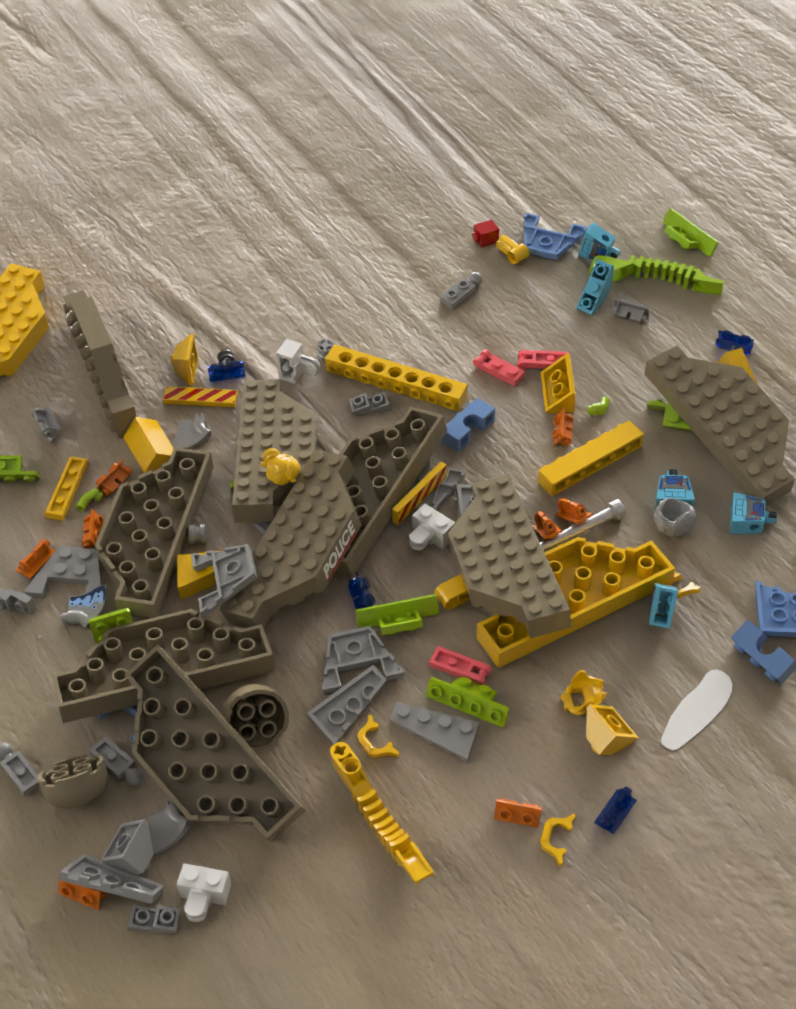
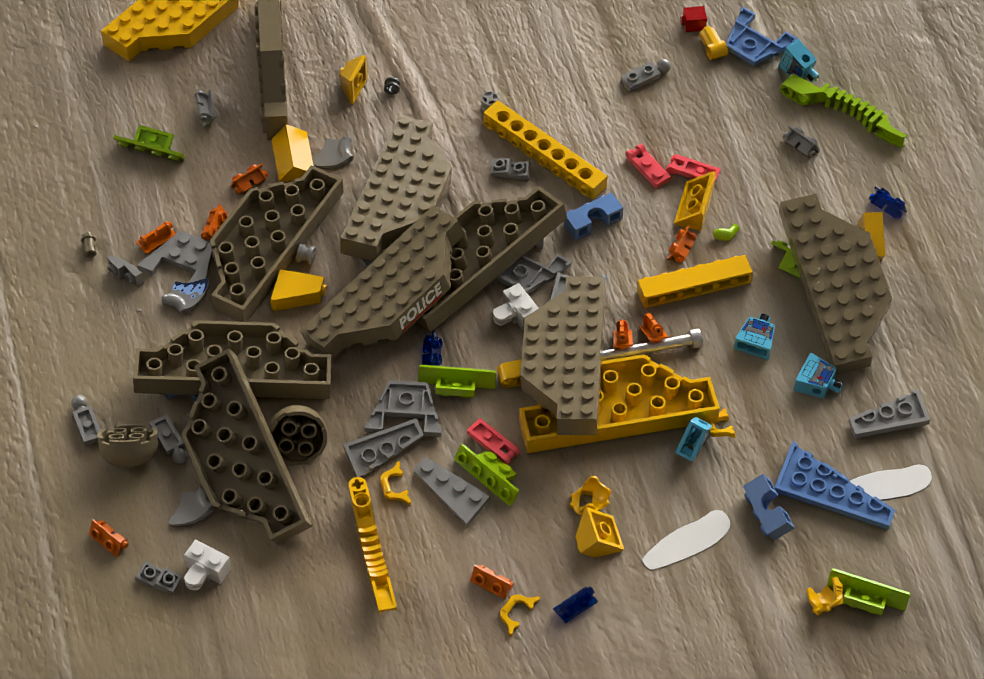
camera: 15 degrees right, 5 degrees up
(66, 488) = (204, 176): yellow tile -> none
(86, 498) = (219, 191): lime arm -> none
(101, 623) = (192, 314): lime bracket -> none
(108, 878) = (132, 534): light grey wing -> none
(130, 847) = (157, 515): light grey slope -> none
(200, 396) = (355, 118): yellow tile -> none
(233, 370) = (392, 100): clear blue hinge -> none
(233, 571) = (321, 299): light grey wing -> none
(280, 467) = (395, 214): yellow hair -> none
(293, 363) = (451, 108): white brick -> none
(419, 493) = (518, 271): yellow tile -> none
(596, 287) = (776, 109): medium azure slope -> none
(674, 517) = (744, 360): light grey hair -> none
(688, 234) = (895, 73): lime bracket -> none

